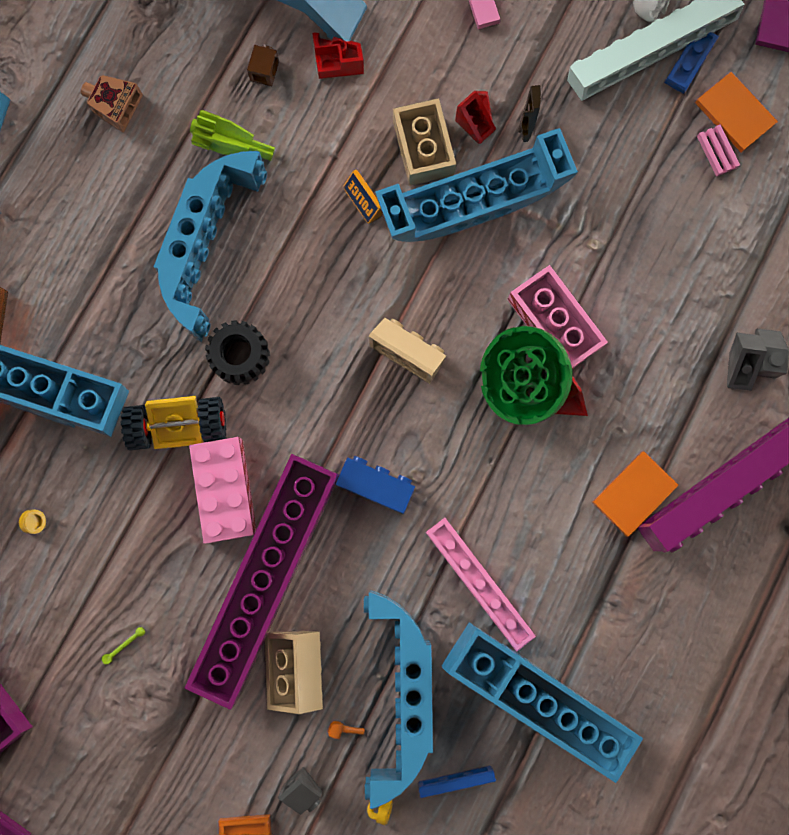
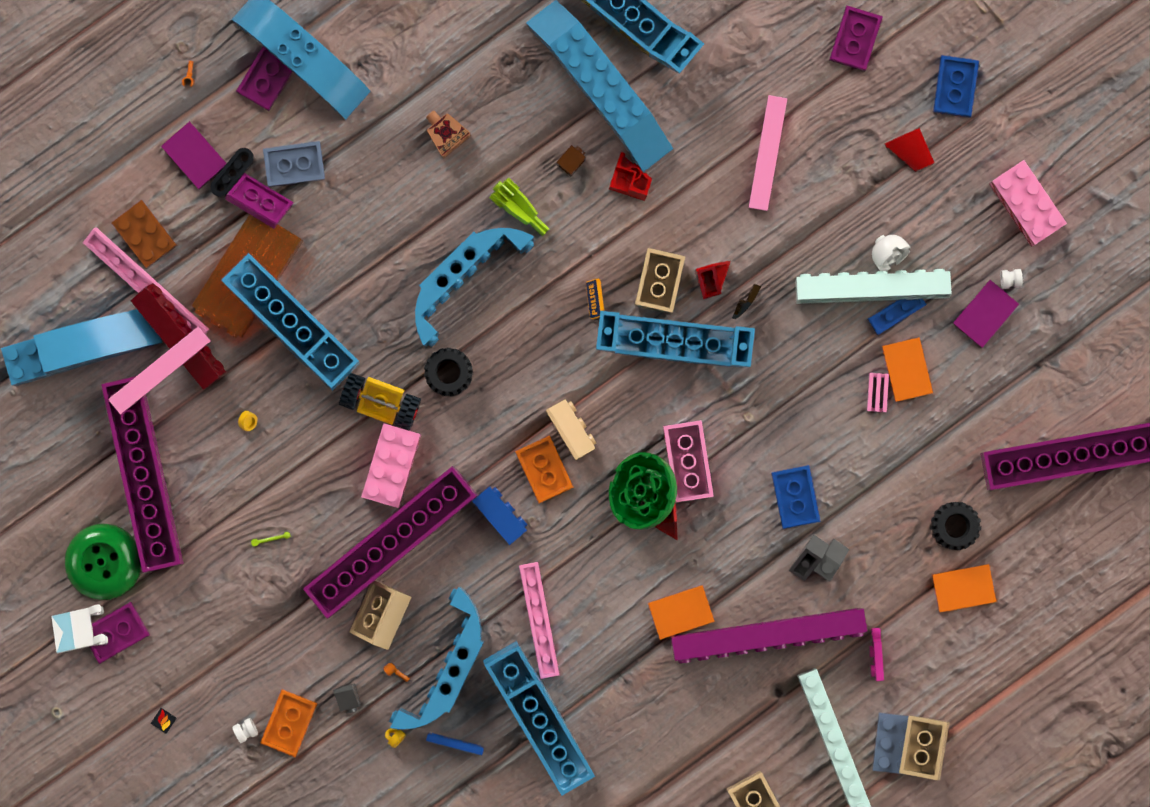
camera: 30 degrees right, 5 degrees up
(399, 410) = (544, 469): none -> orange tile
(692, 304) = (795, 497): none -> blue tile

